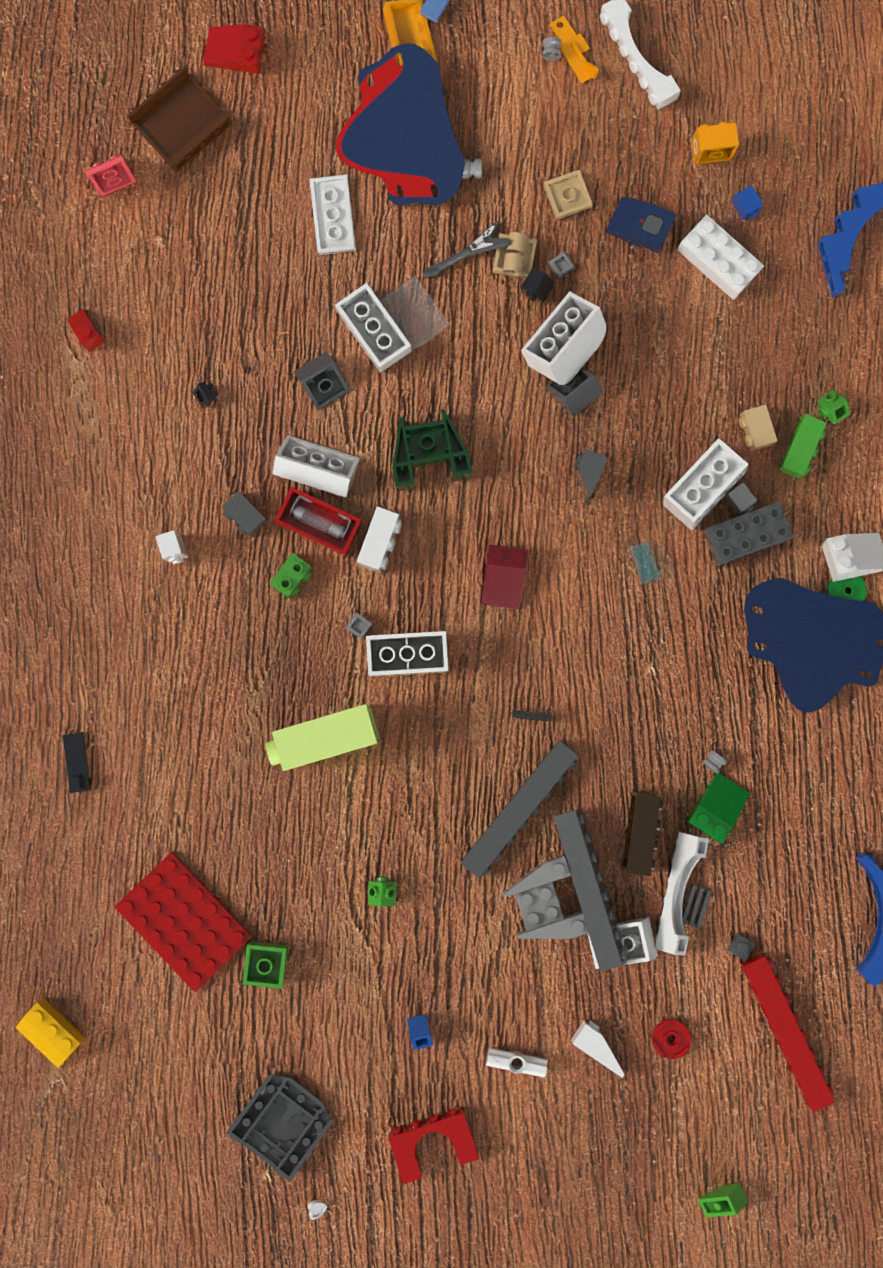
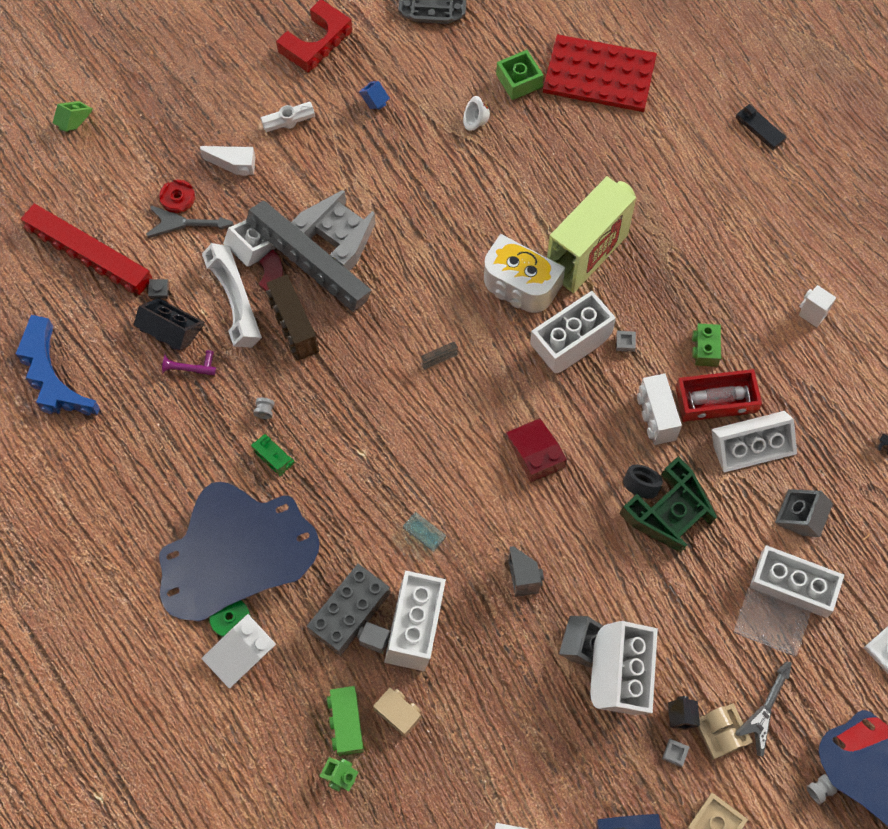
camera: 145 degrees right, 20 degrees down
(244, 513) = (781, 368): dark grey brick -> none
(337, 946) = (475, 114): none -> white hat
(382, 892) = (468, 166): bright green brick -> none
(411, 744) = (521, 275): none -> white brick
(448, 483) = (642, 481): none -> black tyre
(518, 809) = (402, 284): dark grey brick -> none
(628, 896) = (272, 269): none -> dark red tile
(690, 1013) = (172, 222): none -> dark grey piece
(703, 908) = (210, 284): dark grey tile -> none
(718, 808) = (239, 375): green slope -> none
(731, 713) = (272, 455): none -> green hinge
(744, 835) = (201, 369): none -> magenta piece
(752, 902) = (167, 323): none -> black slope

